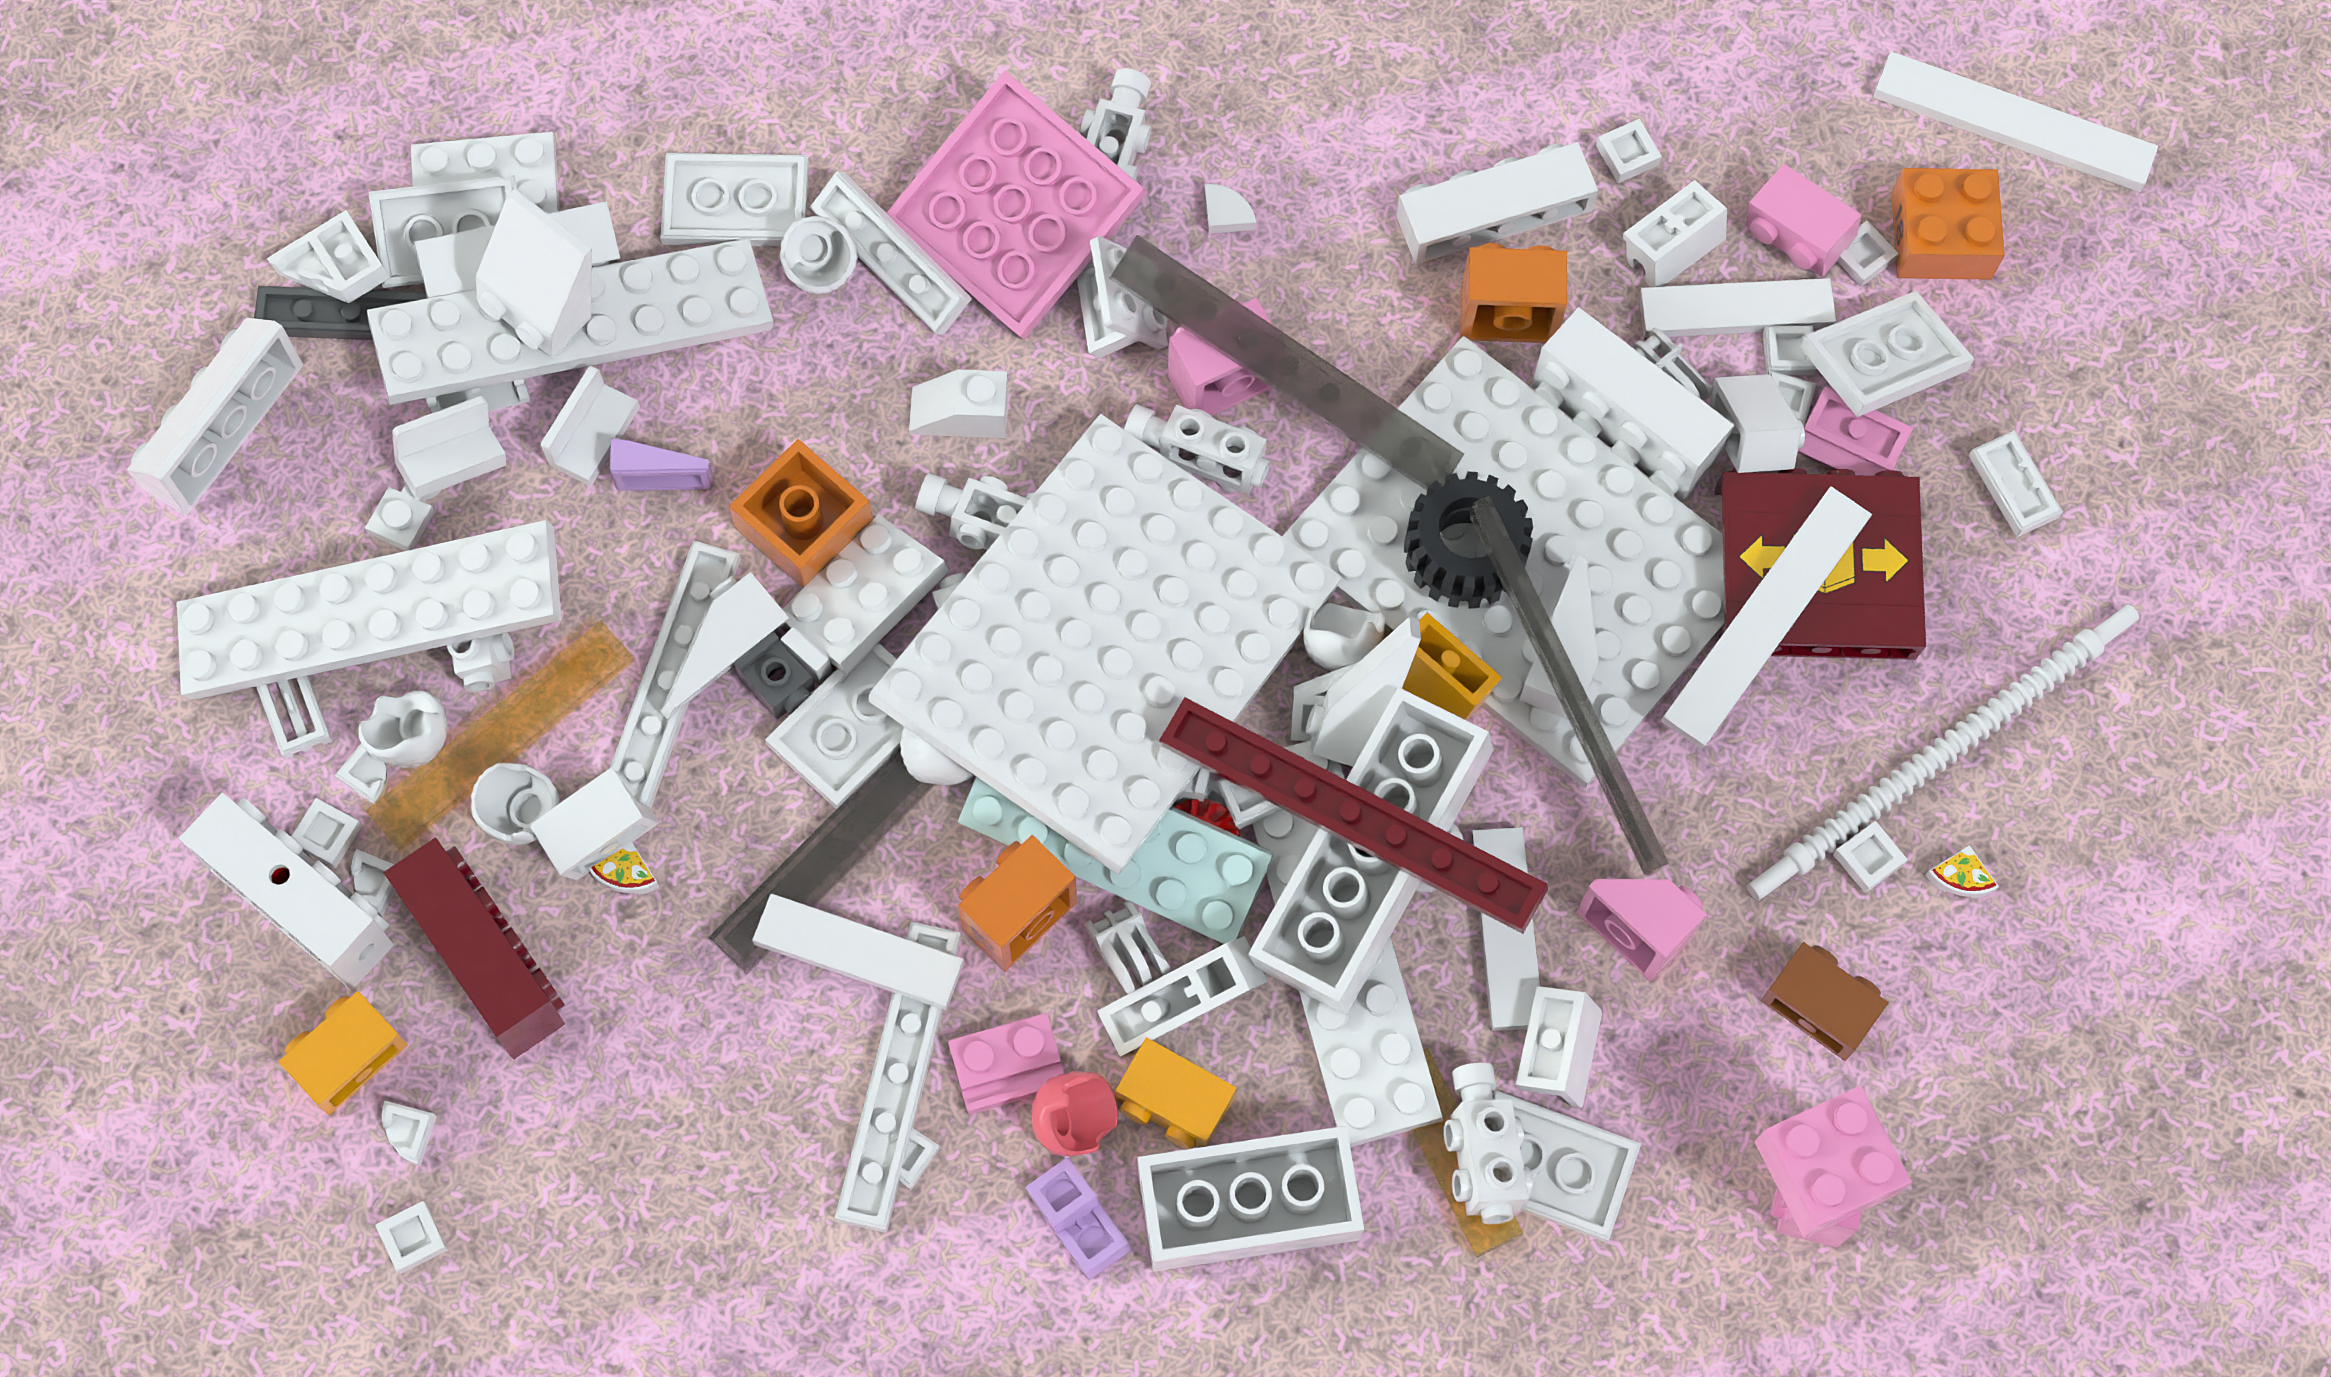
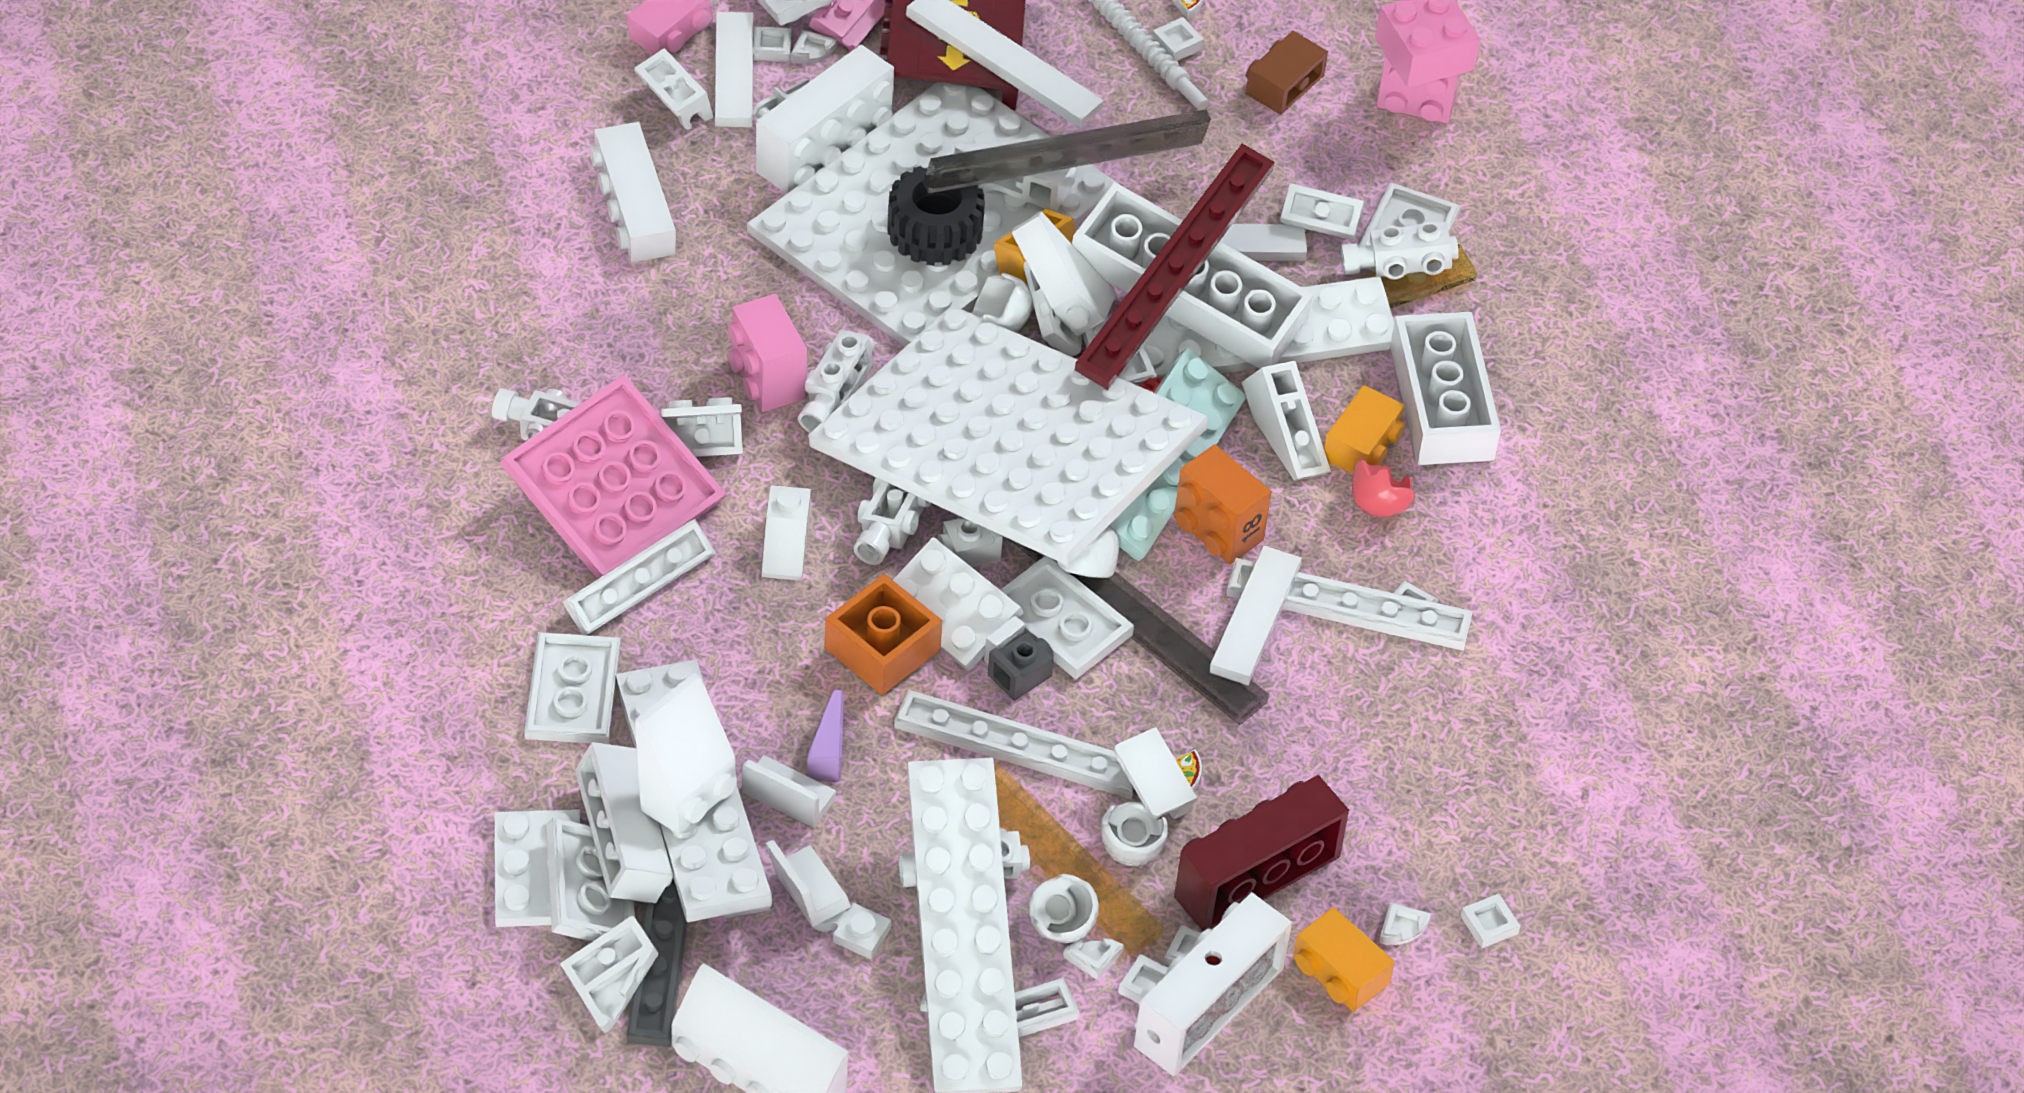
camera: 90 degrees left, 20 degrees down
(729, 628) = (995, 691): white slope -> none
(818, 254) = (645, 614): white hair -> none
(1005, 1062) = (1338, 537): bright pink plate -> none
(1078, 1218) = (1454, 503): lavender slope -> none
(1121, 939) = (1256, 447): white arm -> none
(1227, 210) = (617, 361): white tile -> none
(1284, 364) = (791, 294): clear smoke tile -> none
(1513, 293) = (723, 177): orange brick -> none
(1628, 151) = (594, 112): white plate -> none
(1643, 919) = (1238, 125): bright pink slope -> none
(1764, 426) = (840, 40): white brick -> none

